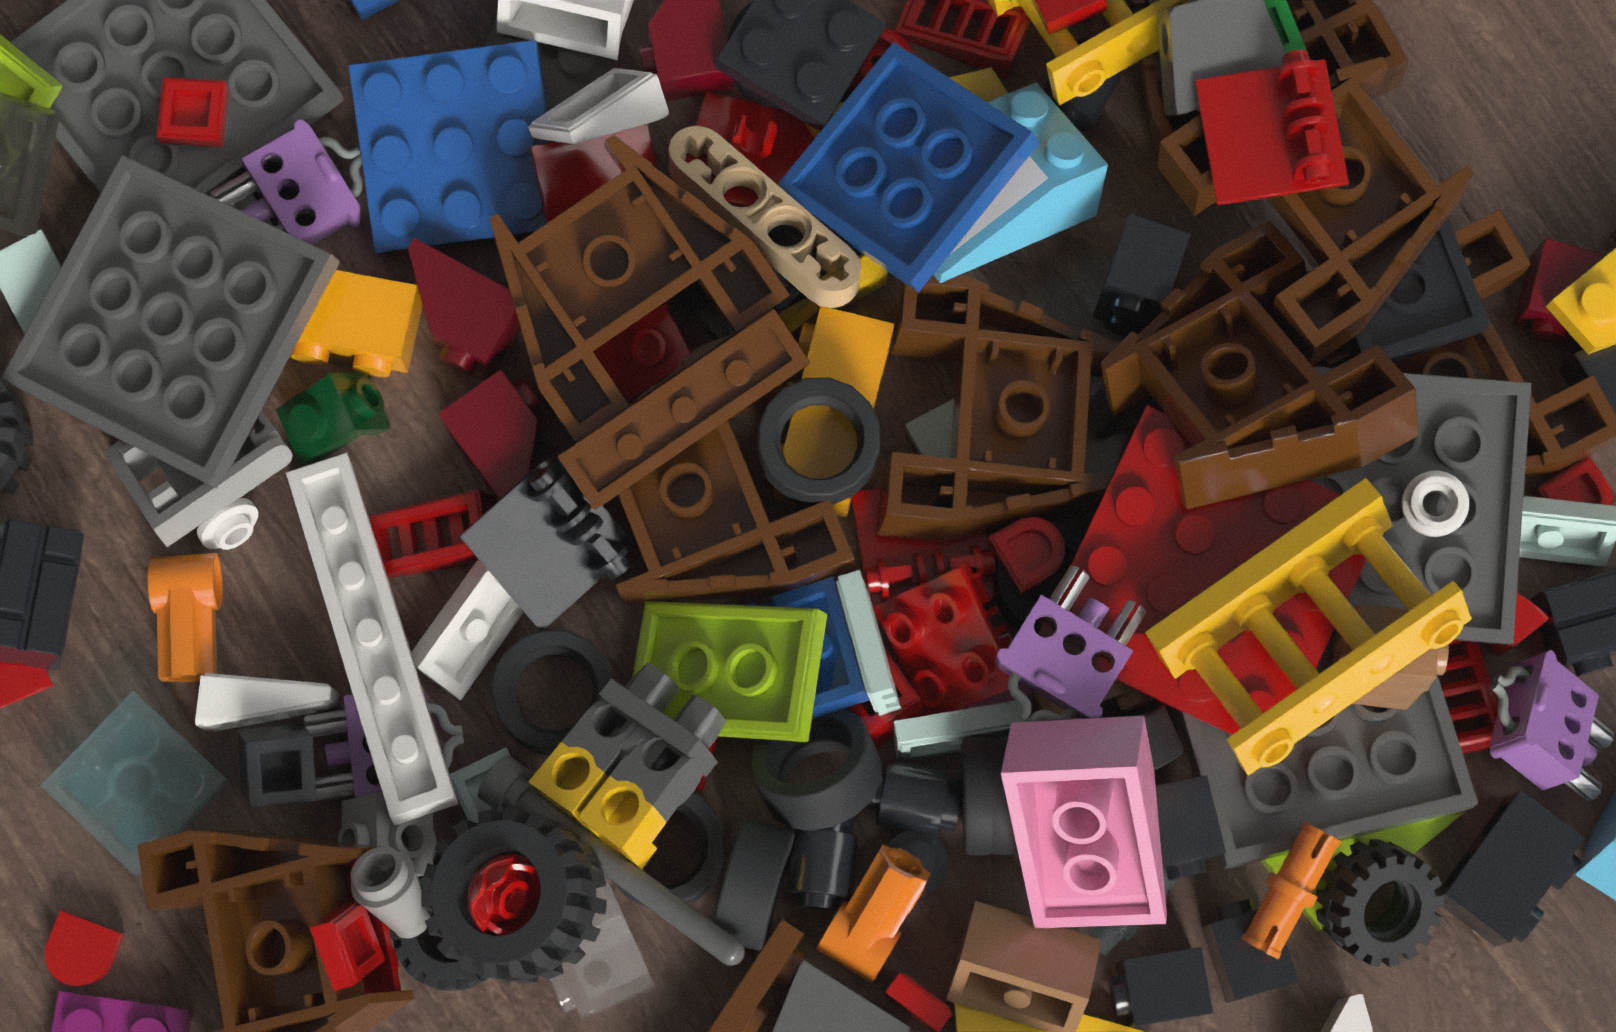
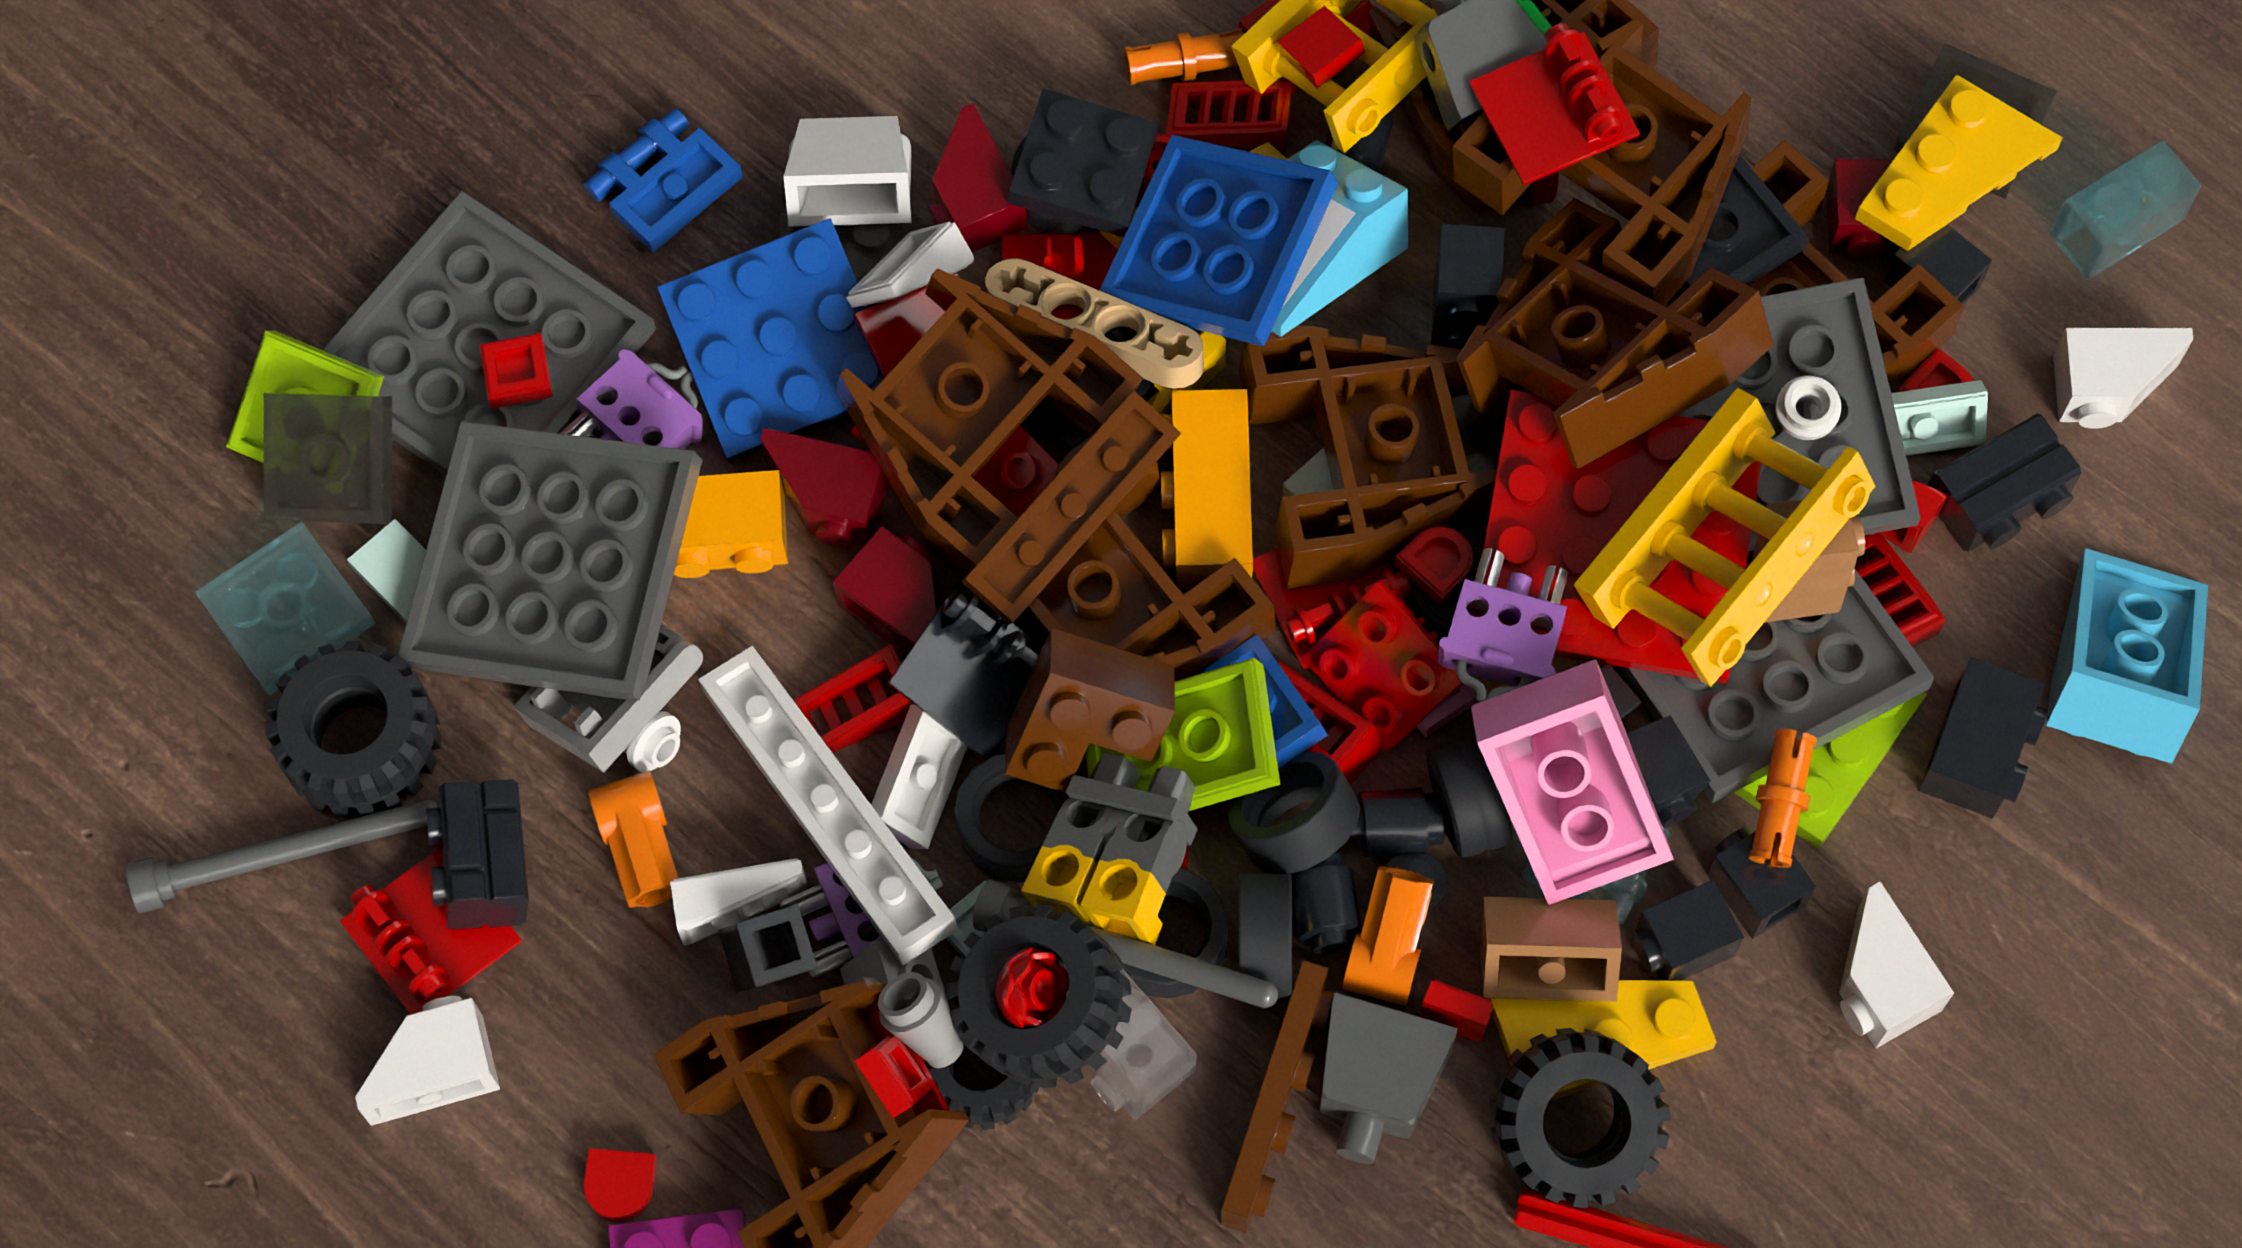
camera: 10 degrees left, 10 degrees down
(134, 781) = (627, 1006): clear light blue plate -> none
(332, 415) = (727, 616): dark green bracket -> none
(641, 609) = (1082, 697): none -> reddish brown brick
(810, 393) = (1216, 463): black tyre -> none
(868, 643) = (1310, 683): light aqua tile -> none
(945, 731) = (1403, 753): light aqua tile -> none
(1407, 917) = (1901, 794): black tyre -> none
(1547, 725) = (1978, 593): medium lavender piece -> none

